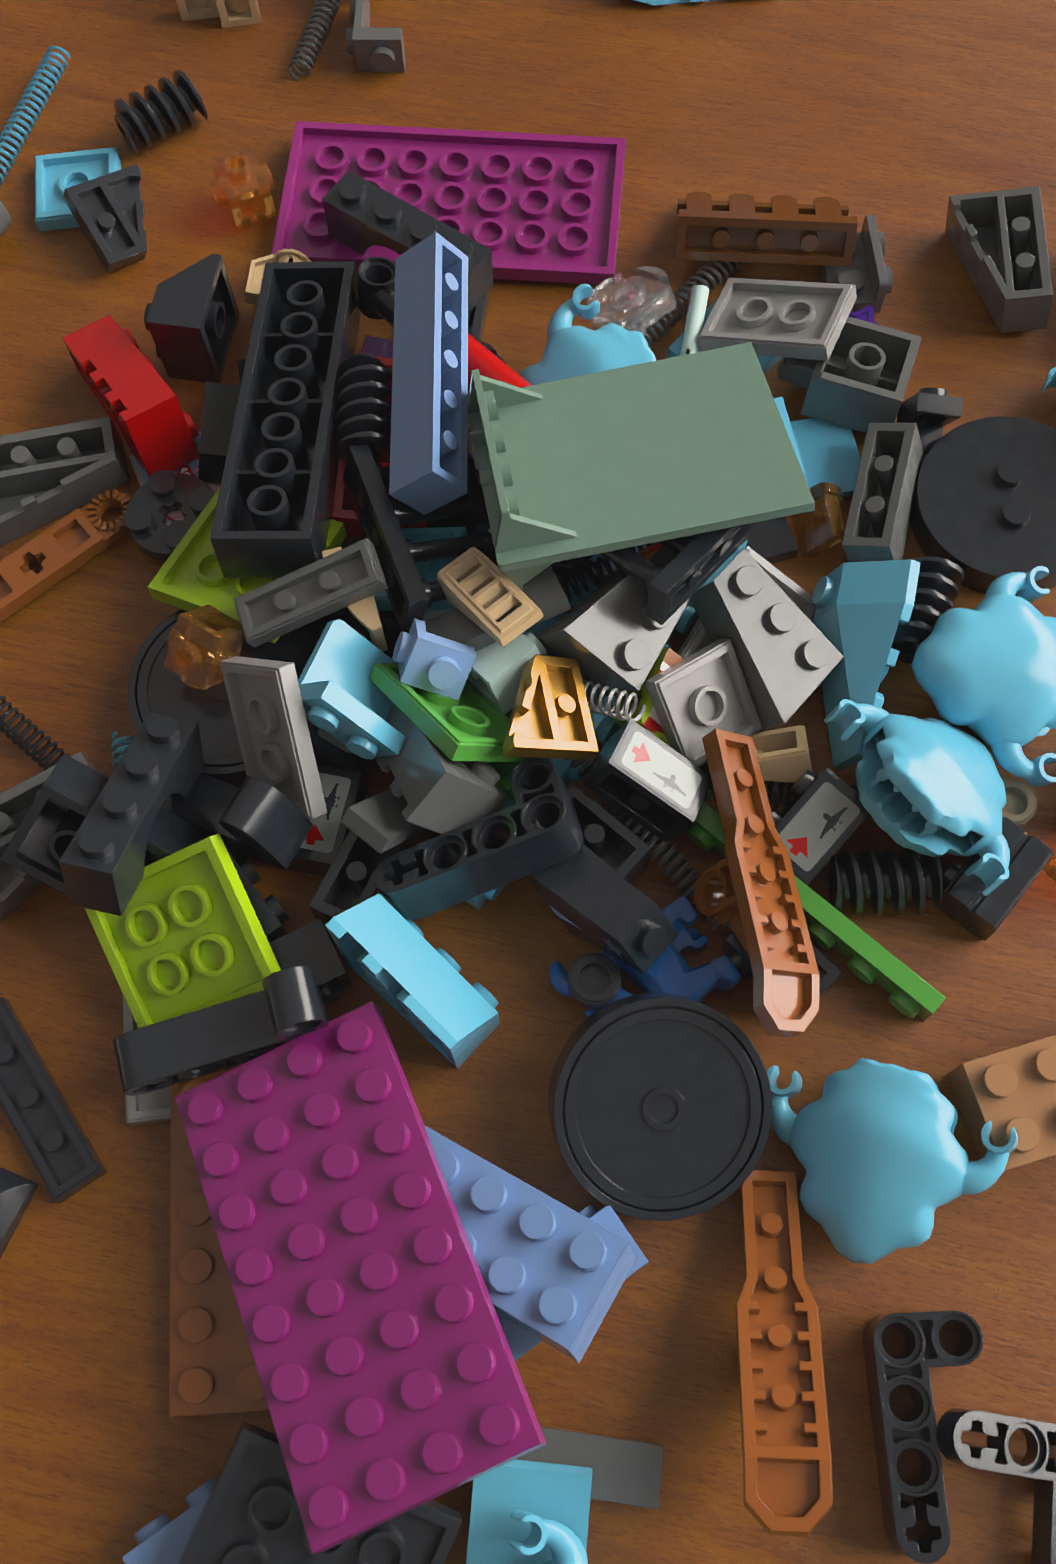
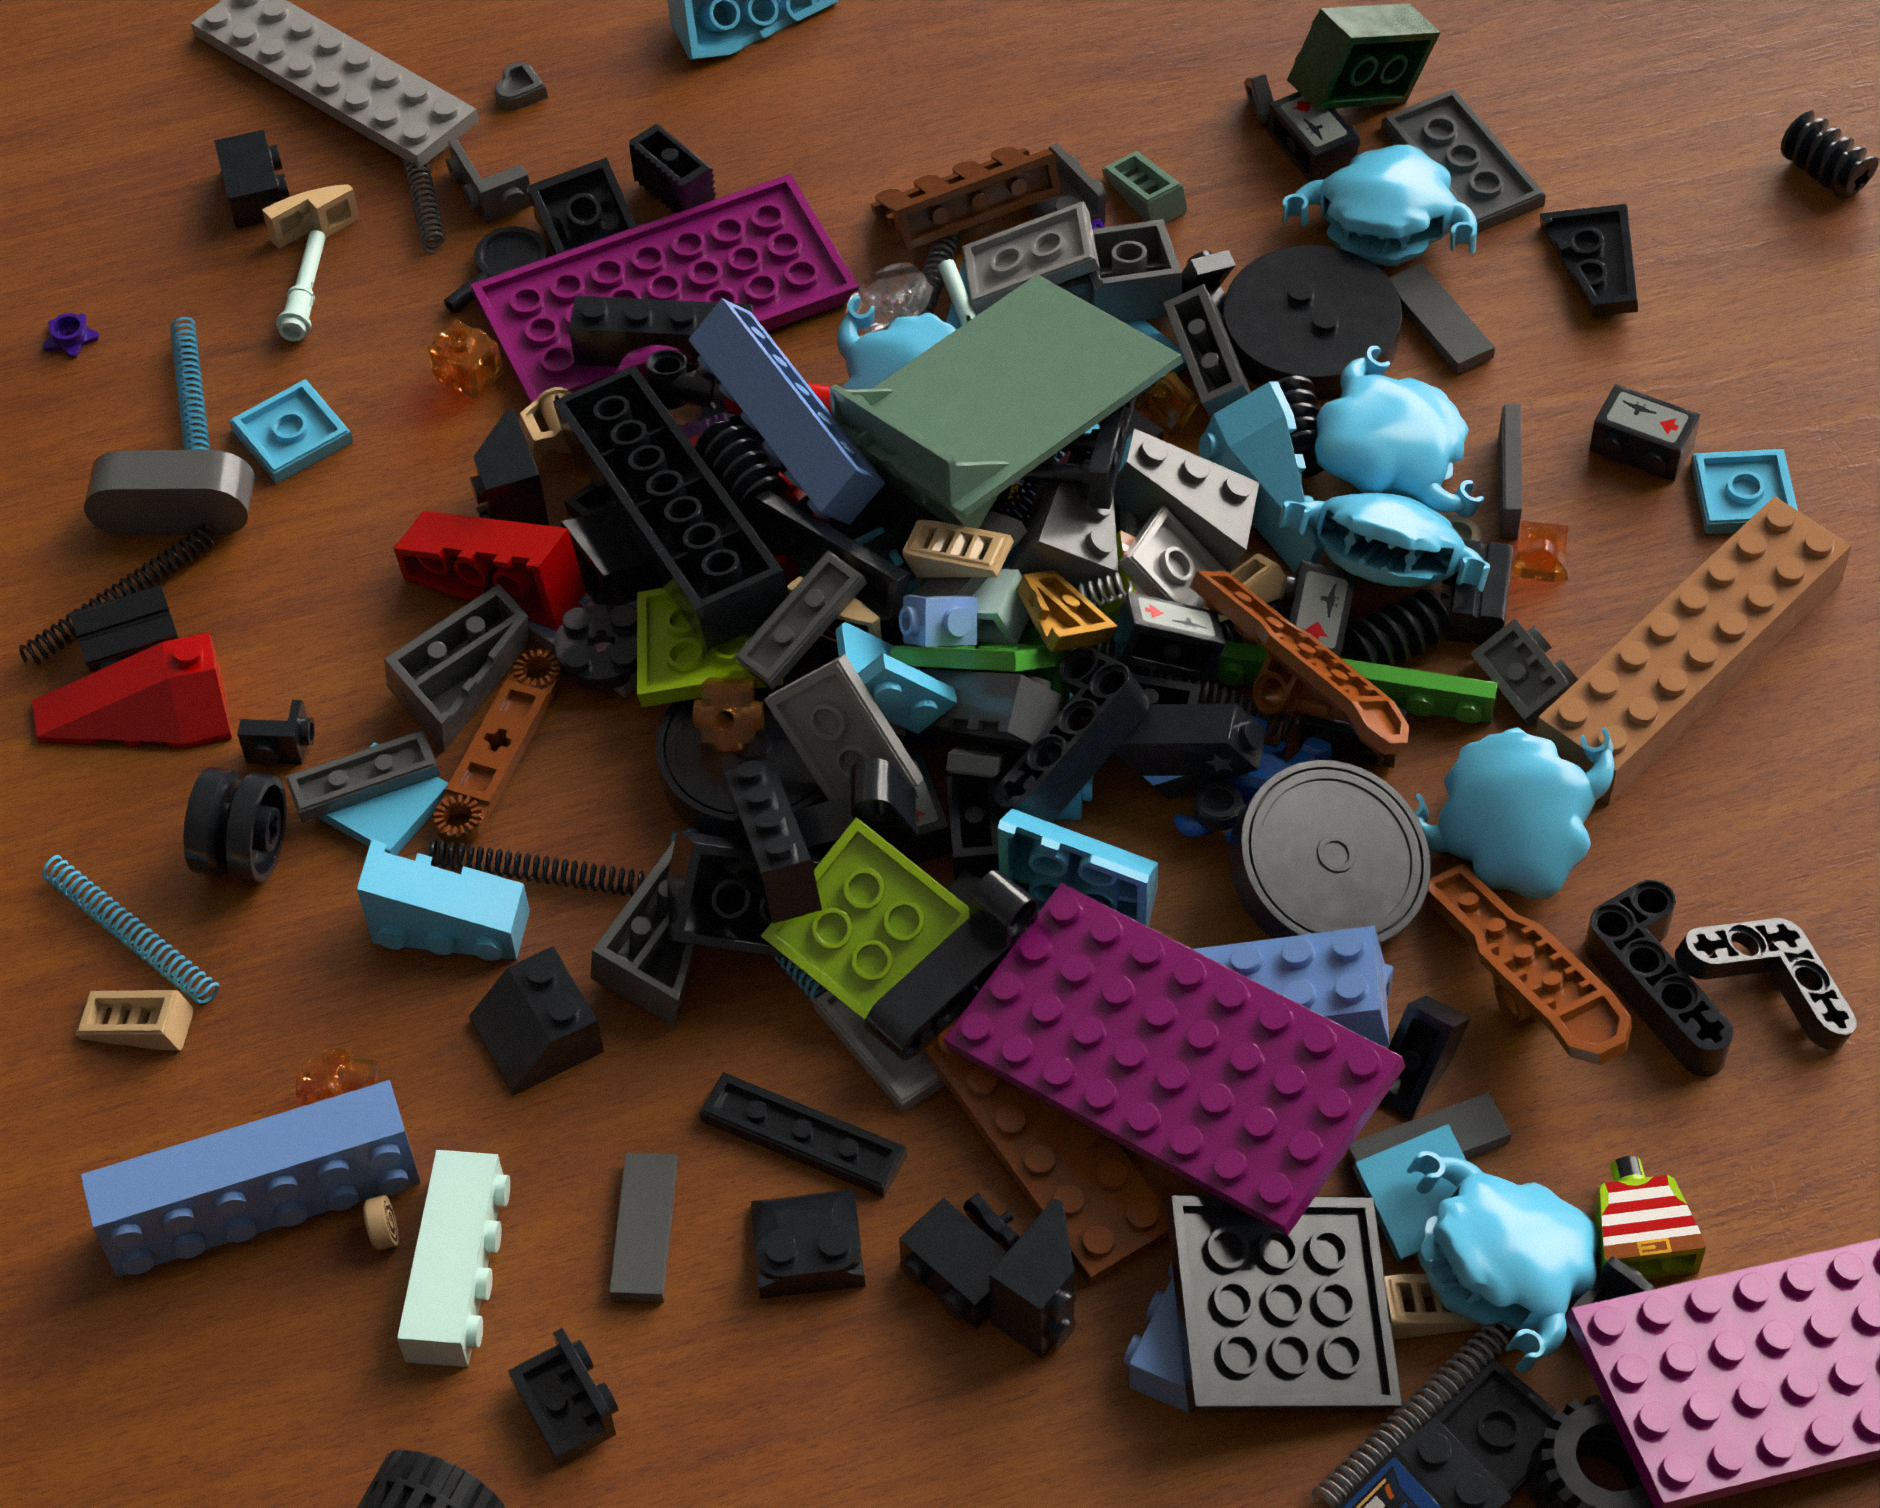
camera: 30 degrees left, 15 degrees down
(59, 1329) = (951, 1260): none -> black brick
(97, 1416) = (1035, 1285): none -> black slope
(111, 216) = (354, 436): black wing -> none
(111, 1338) = (988, 1221): none -> black piece
(158, 110) = (330, 330): black piece -> none
(175, 59) = (294, 321): none -> light aqua pin
(342, 103) = (498, 253): none -> black piece
(429, 89) = (580, 206): none -> black slope
(523, 87) = (670, 170): none -> black brick
(623, 1364) = (1427, 1043): none -> black slope
(937, 300) = (1149, 192): none -> sand green slope
(989, 991) = (1523, 670): none -> dark grey bracket
(1005, 254) = (1185, 129): dark grey wedge -> none

